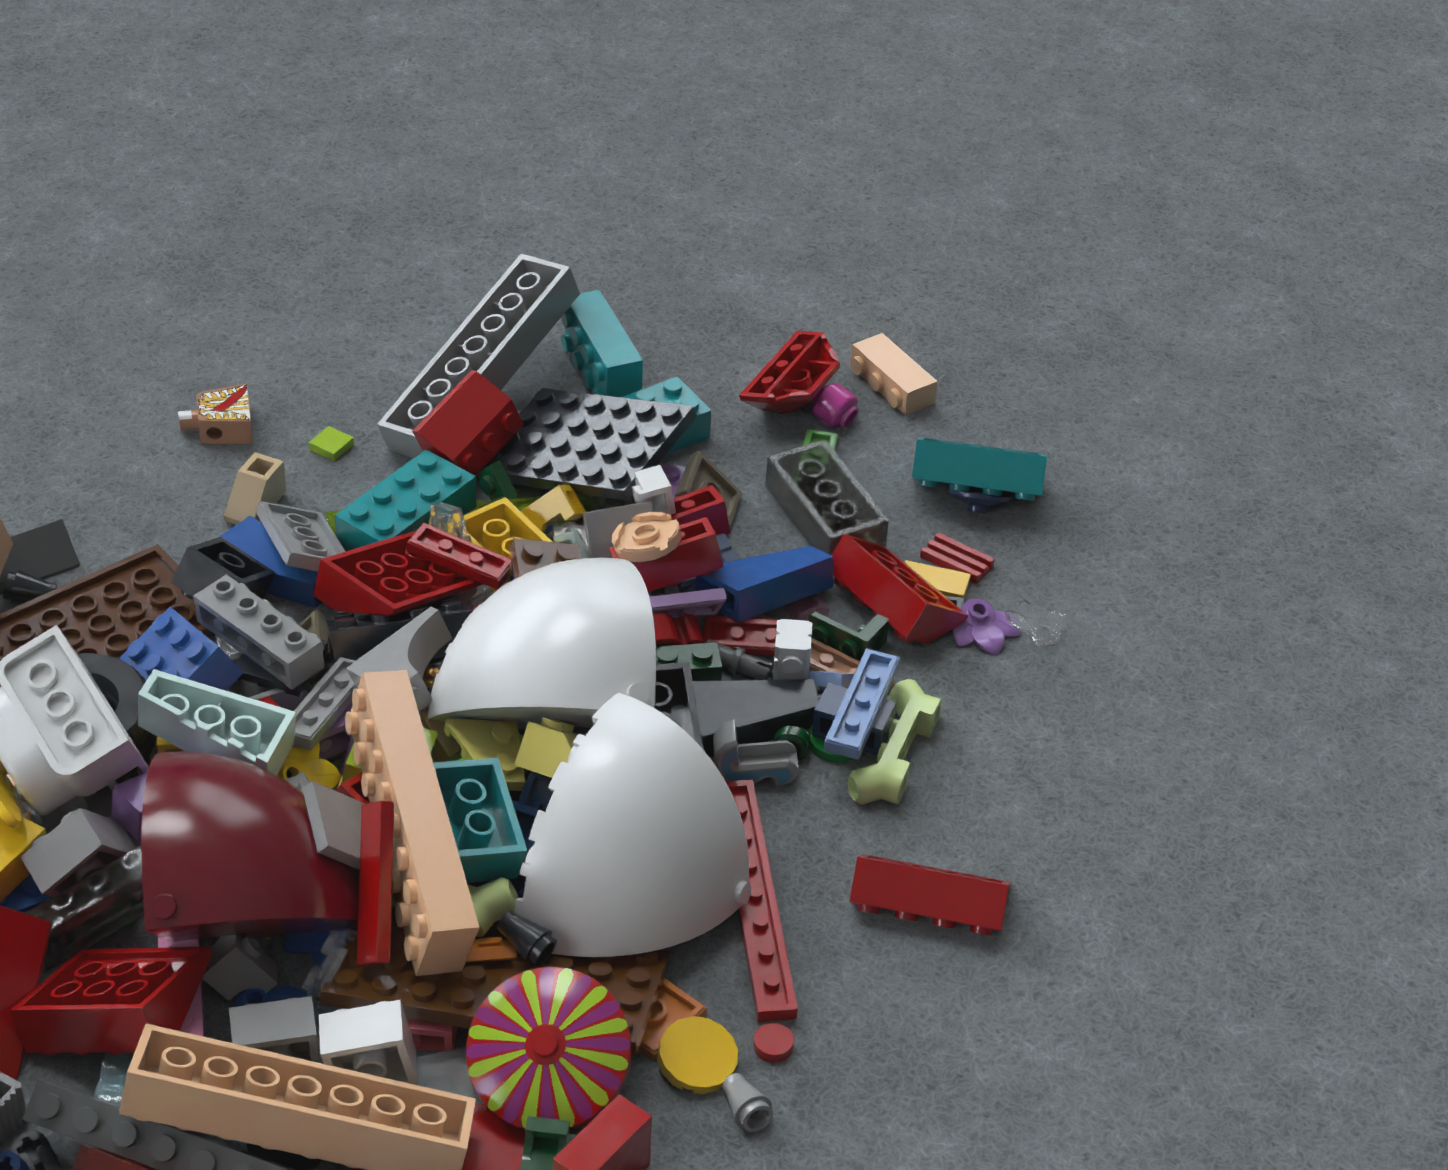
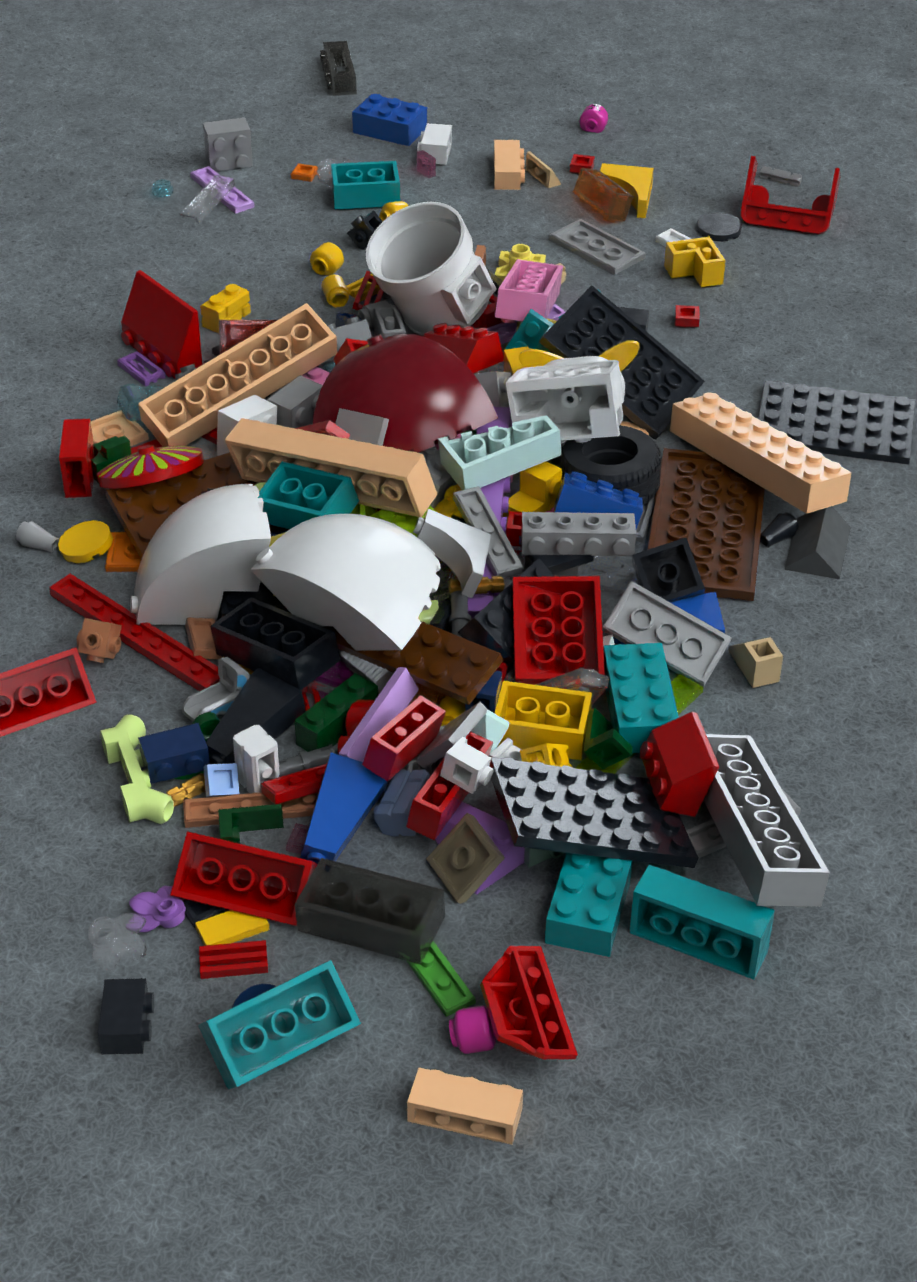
camera: 140 degrees right, 0 degrees up
(221, 416) = (868, 697): torso -> none
(331, 443) = (781, 738): lime tile -> none
(460, 556) = (543, 662): red tile -> none
(646, 537) = (420, 717): light nougat tile -> none
(773, 1042) = (50, 574): red tile -> none
(808, 892) = (99, 640): none -> nougat brick
(861, 704) = (167, 741): medium blue tile -> none
(1082, 558) = (124, 1016): none -> black brick

